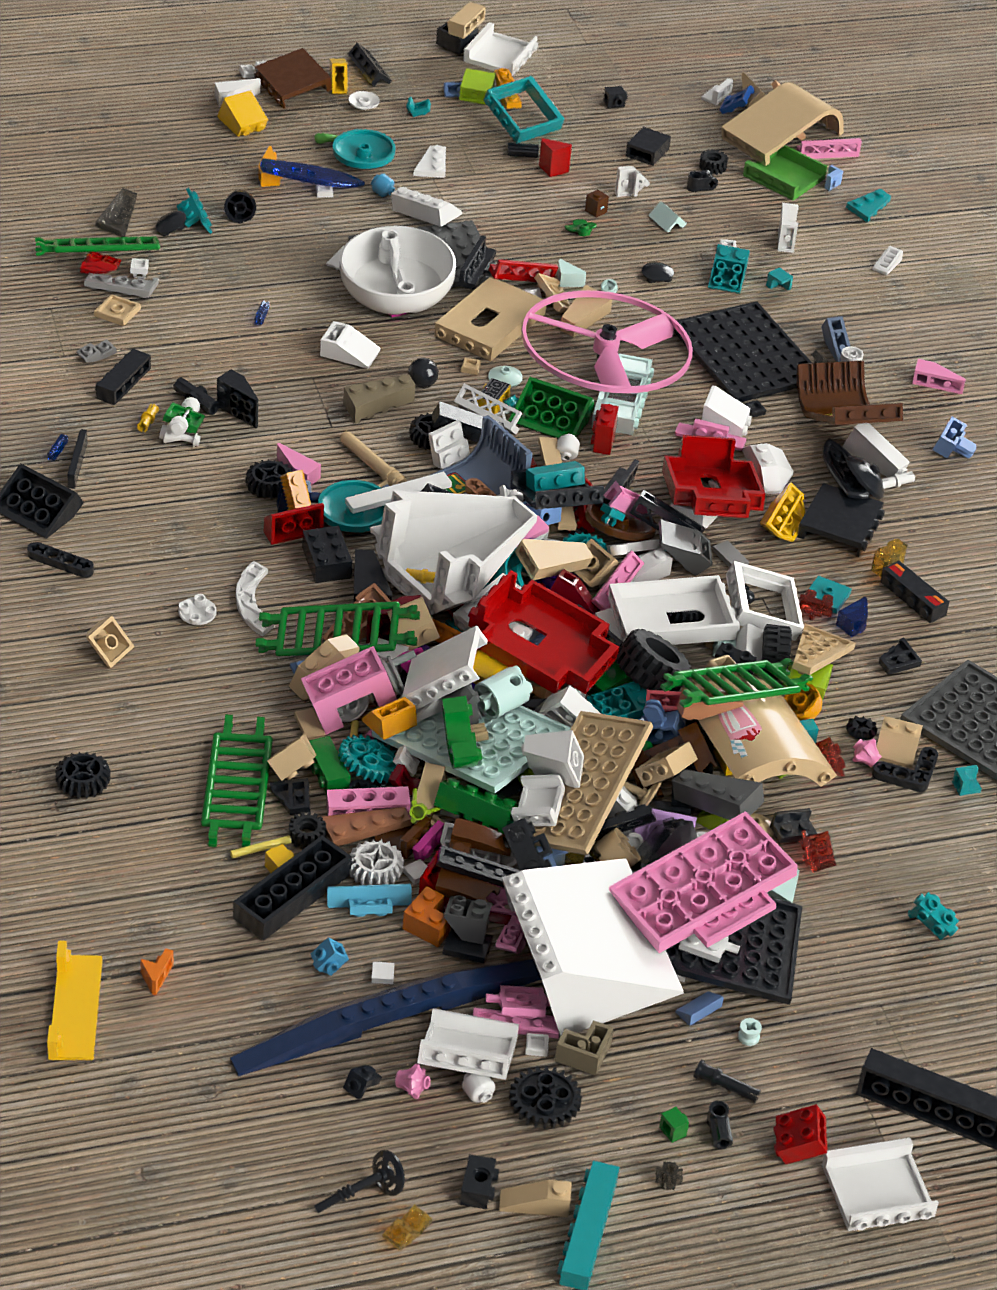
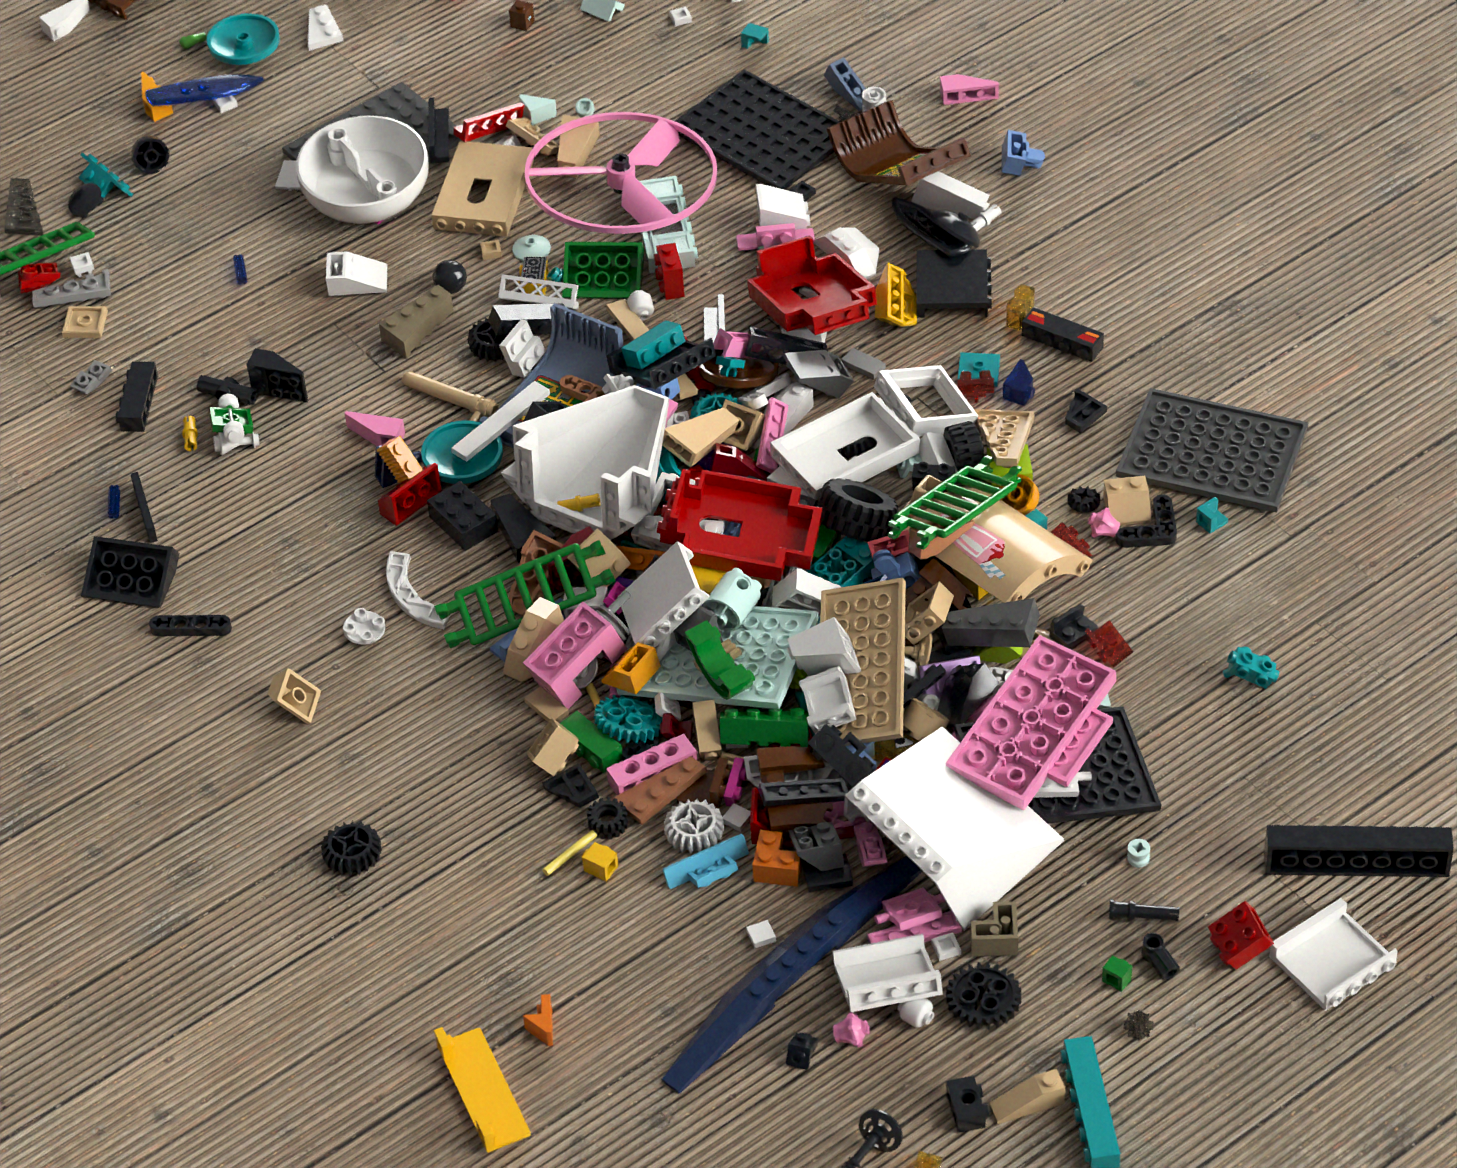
camera: 15 degrees left, 5 degrees up
(212, 778) = (482, 801): green bar -> none
(242, 114) = (90, 44): yellow slope -> none
(265, 478) = (354, 454): black gear -> none
(292, 888) = (628, 883): black brick -> none
(329, 956) = (703, 939): dark azure brick -> none
(383, 185) = (286, 74): dark azure head -> none
(419, 810) = (712, 755): lime plant -> none
(423, 207) = (344, 85): white slope -> none
(581, 226) = (518, 47): green plate -> none
(657, 272) = (624, 72): black dish -> none
(700, 1007) = (1079, 847): medium blue slope -> none
(729, 269) = (697, 42): teal slope -> none

